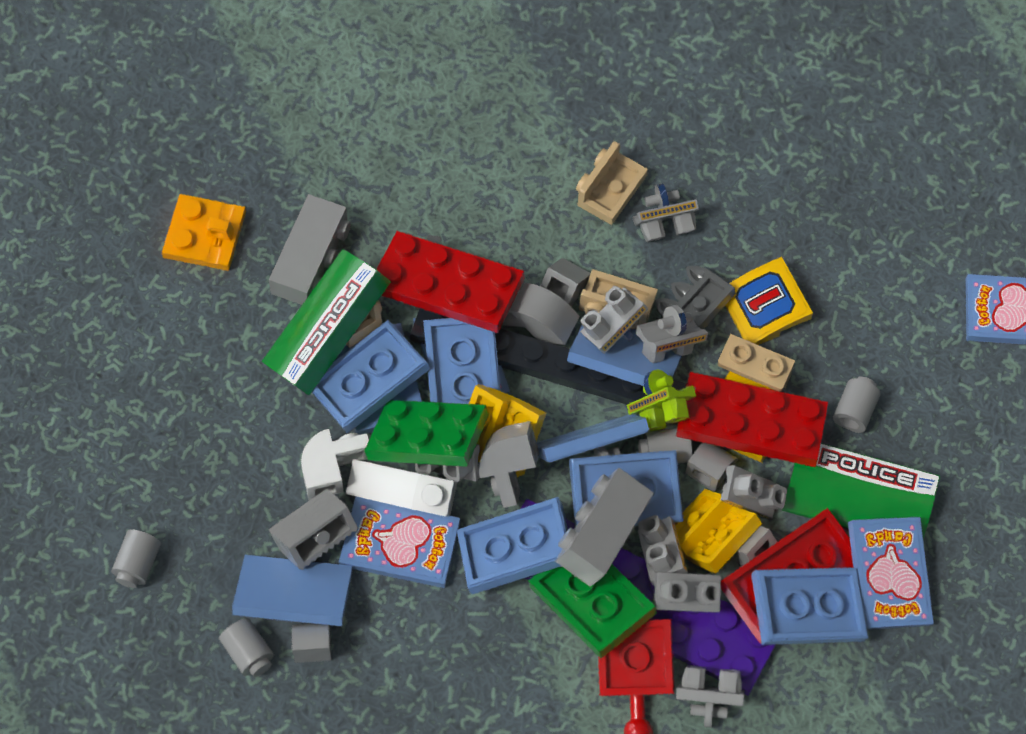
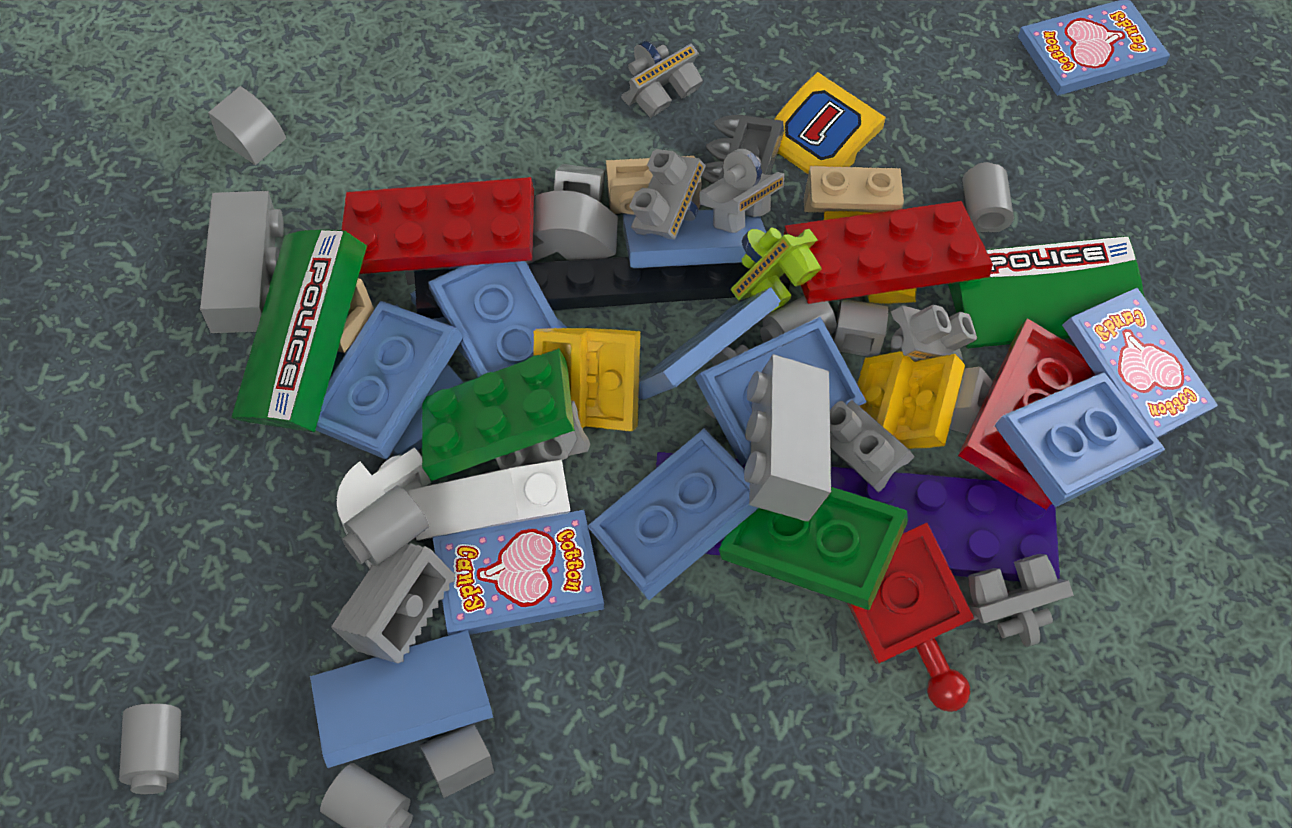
camera: 25 degrees left, 5 degrees down
(203, 232) = (90, 291): light orange hinge -> none
(324, 480) = (384, 527): none -> light grey brick
(353, 144) = (246, 125): none -> light grey brick
(505, 452) = (612, 397): light grey brick -> none
(610, 184) = (579, 68): tan bracket -> none
(687, 592) = (934, 477): light grey hips -> none

